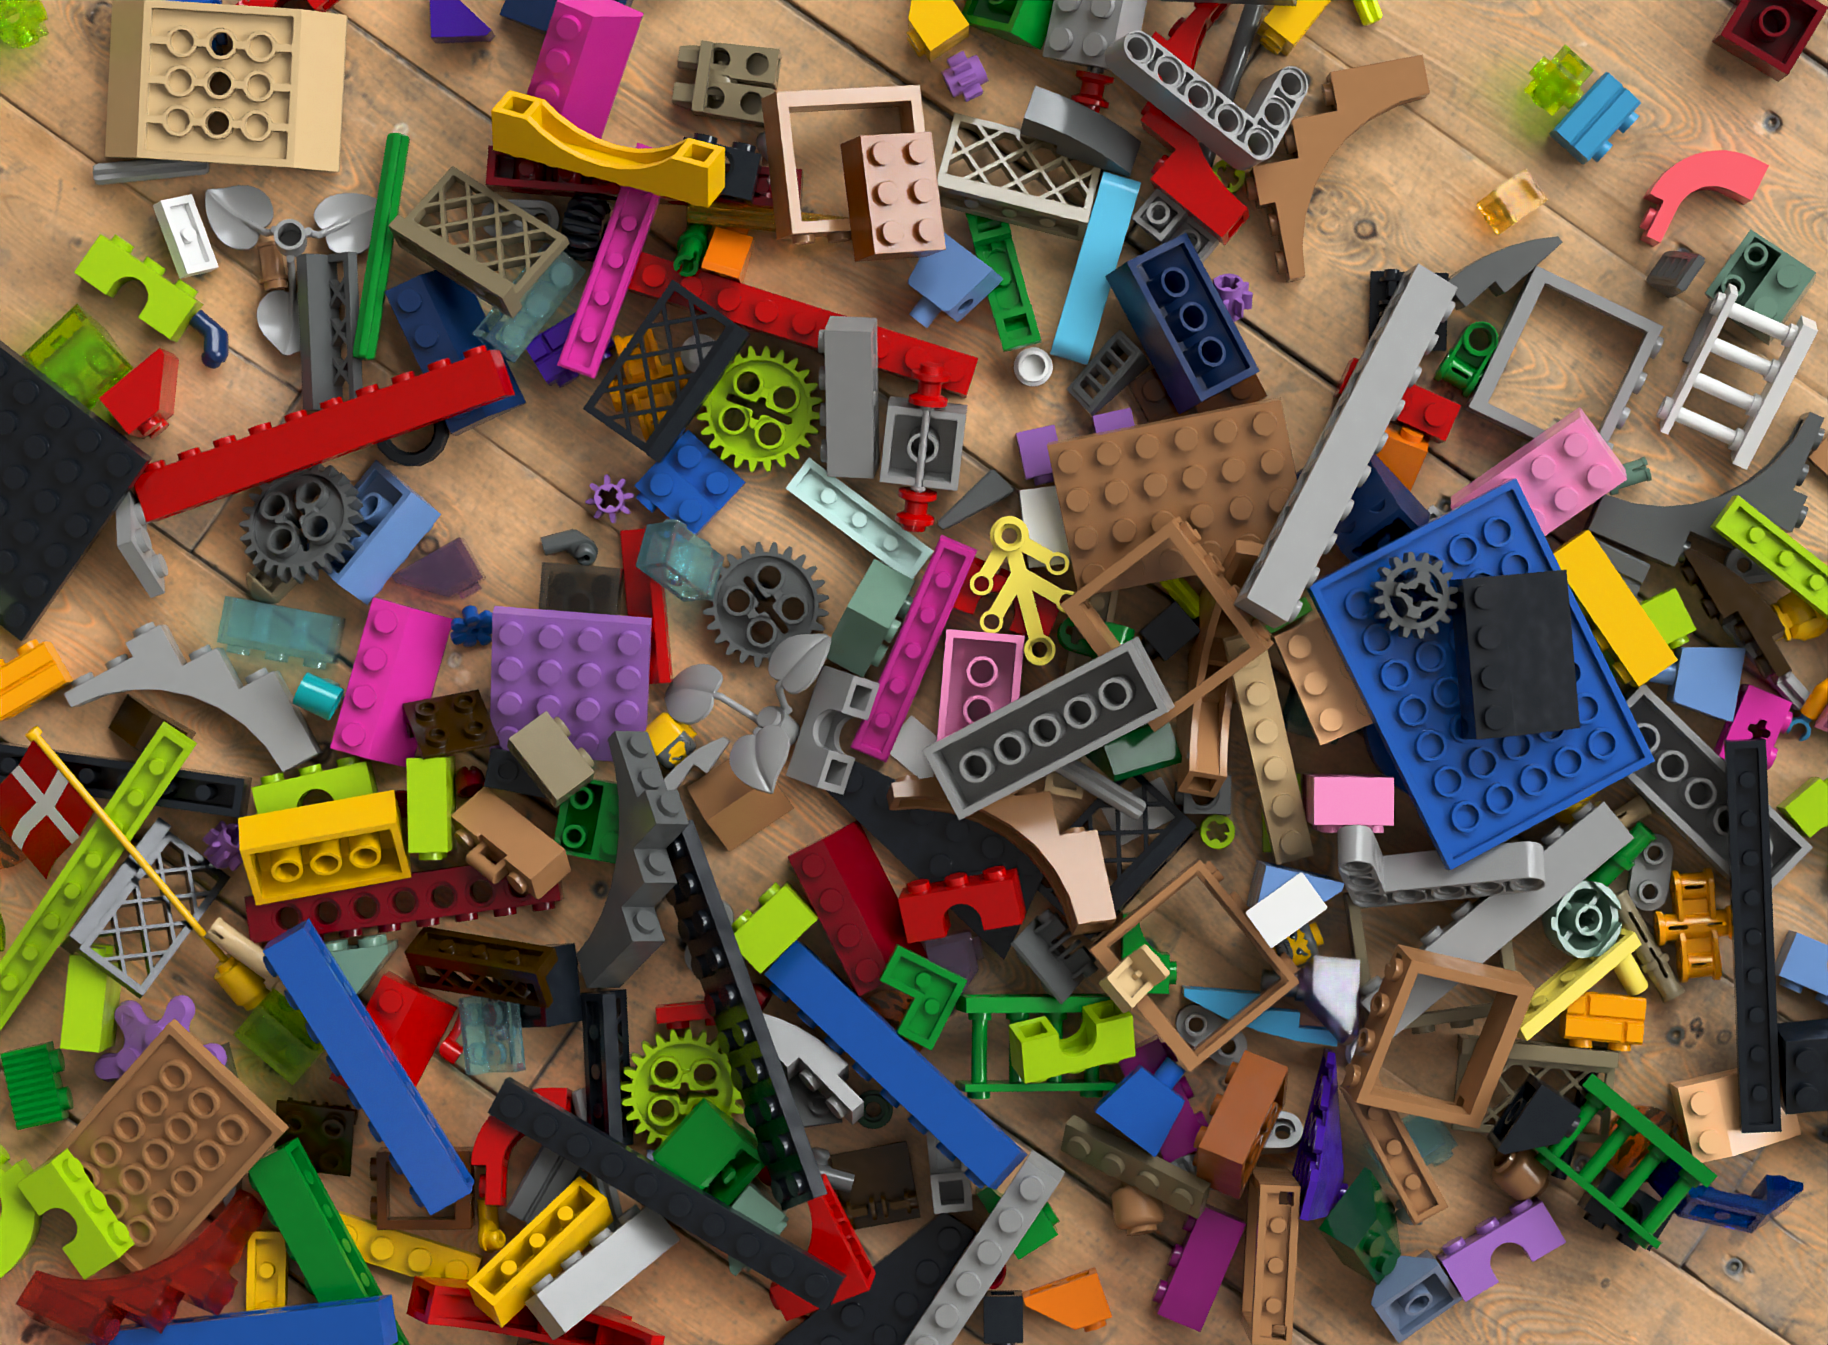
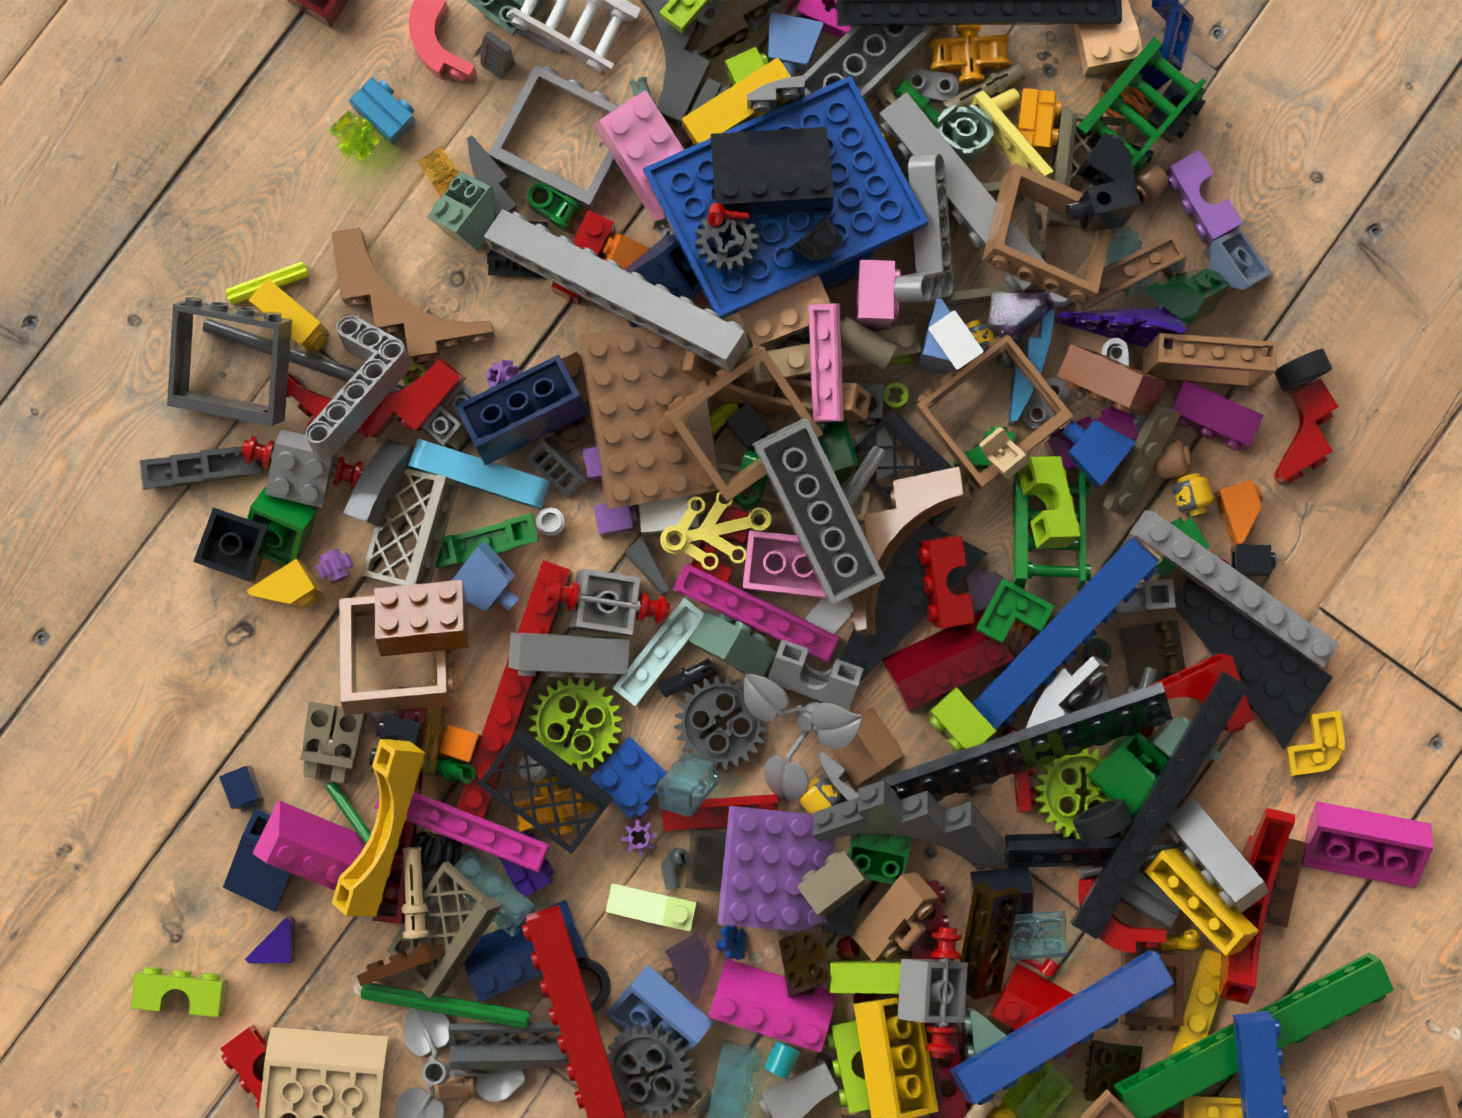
camera: 90 degrees left, 5 degrees down
(411, 898) = (935, 991): none -> light grey brick
(433, 184) = (400, 962): none -> reddish brown plate
(507, 201) = (414, 908): none -> tan pin
(517, 518) = (651, 907): none -> yellowish green slope
(634, 109) = (348, 810): none -> green bar
(643, 1118) = (1102, 821): none -> black tyre
(825, 557) = (686, 678): none -> black axle
(1049, 959) = (988, 518): dark grey hinge -> none
(1090, 1237) = (1193, 494): none -> yellow head
(1253, 734) = (826, 362): none -> bright pink tile
(1283, 785) = (866, 343): none -> dark tan brick
(1415, 720) = (819, 241): none -> black piece
(1450, 582) = (718, 214): none -> red hand
(1456, 237) = (465, 210): none -> sand green slope
(1477, 1111) = (1105, 206): none -> black torso
(1620, 644) = (765, 96): none -> light grey slope

